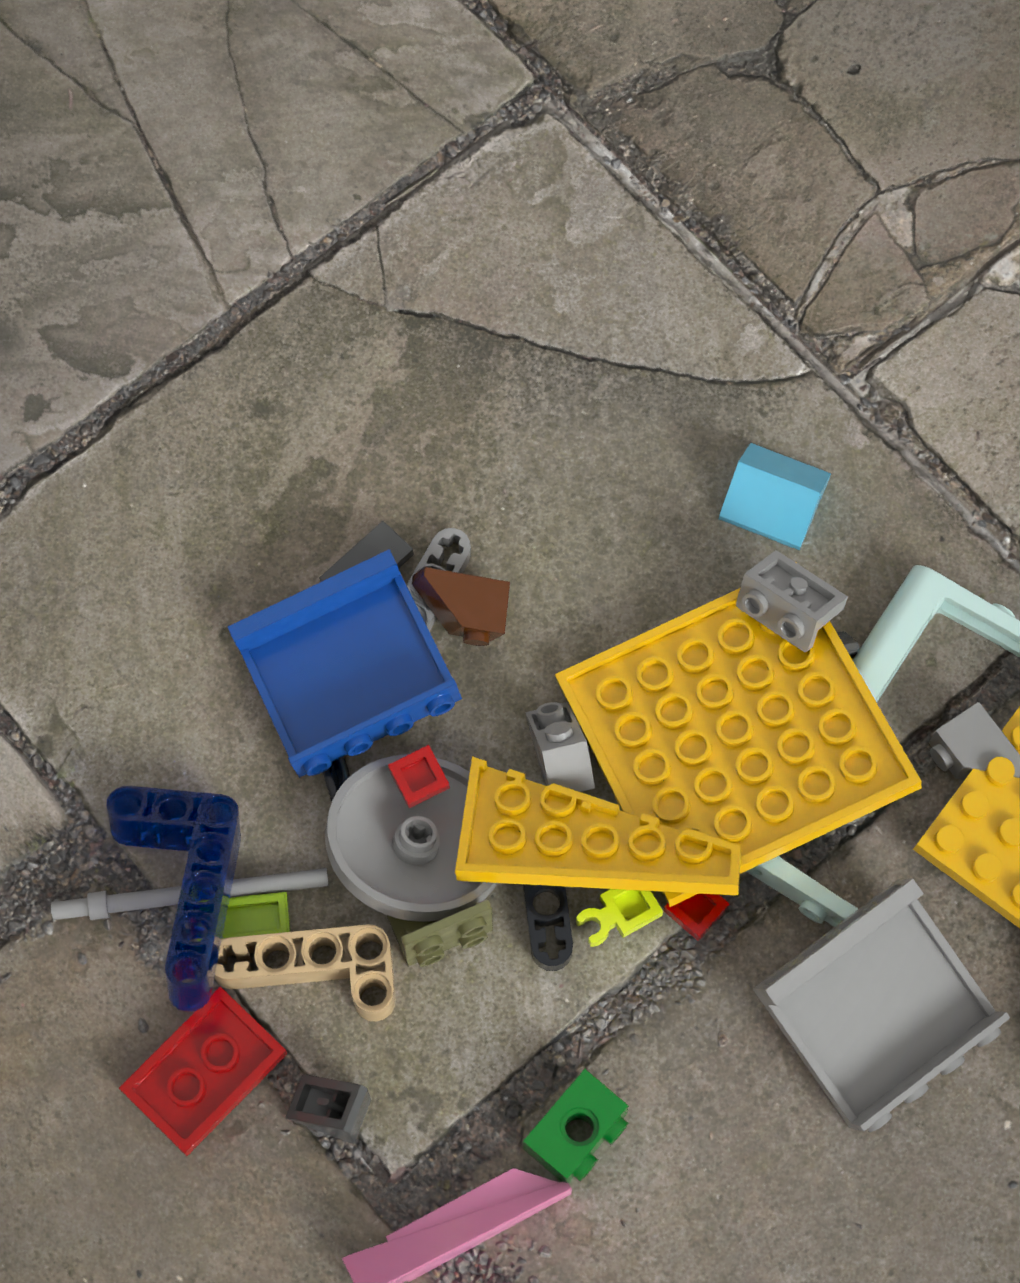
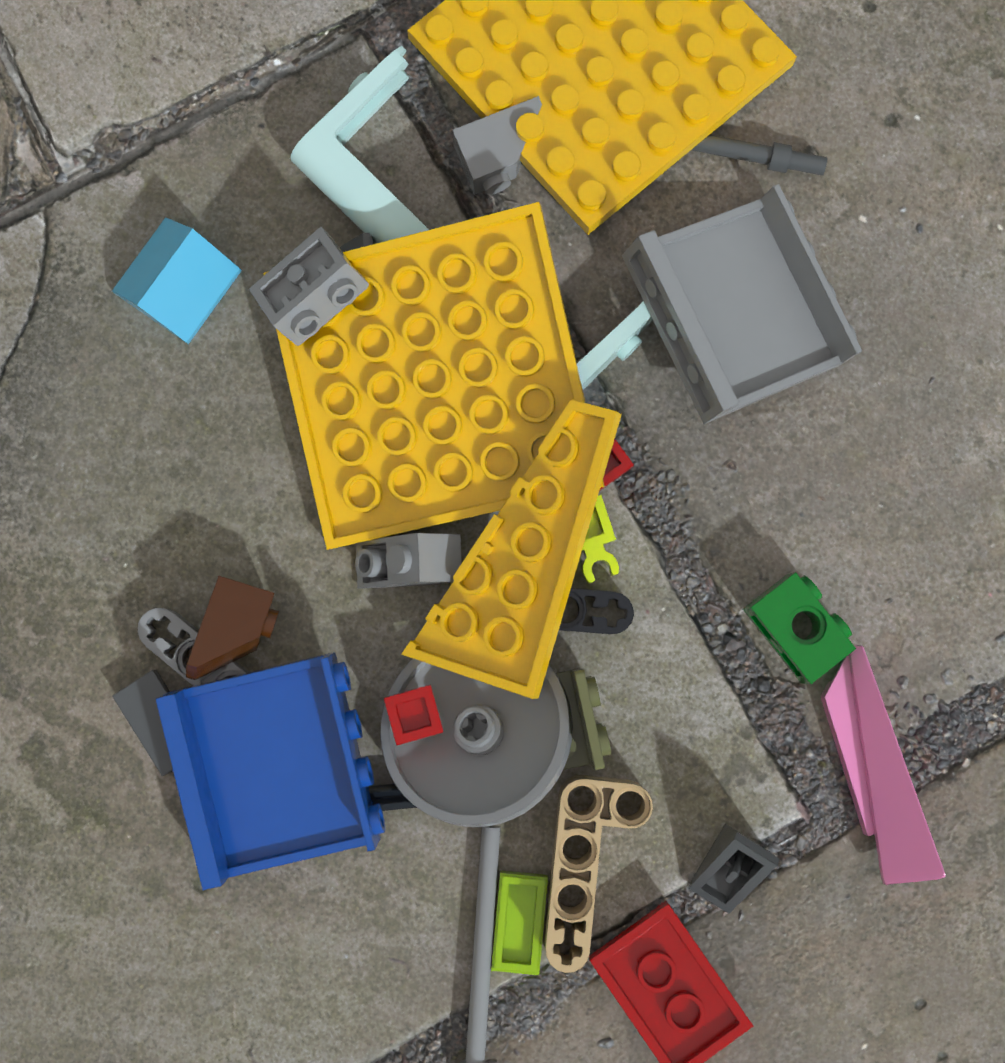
camera: 80 degrees left, 15 degrees up
(193, 832) = (478, 970): clear blue beam -> none

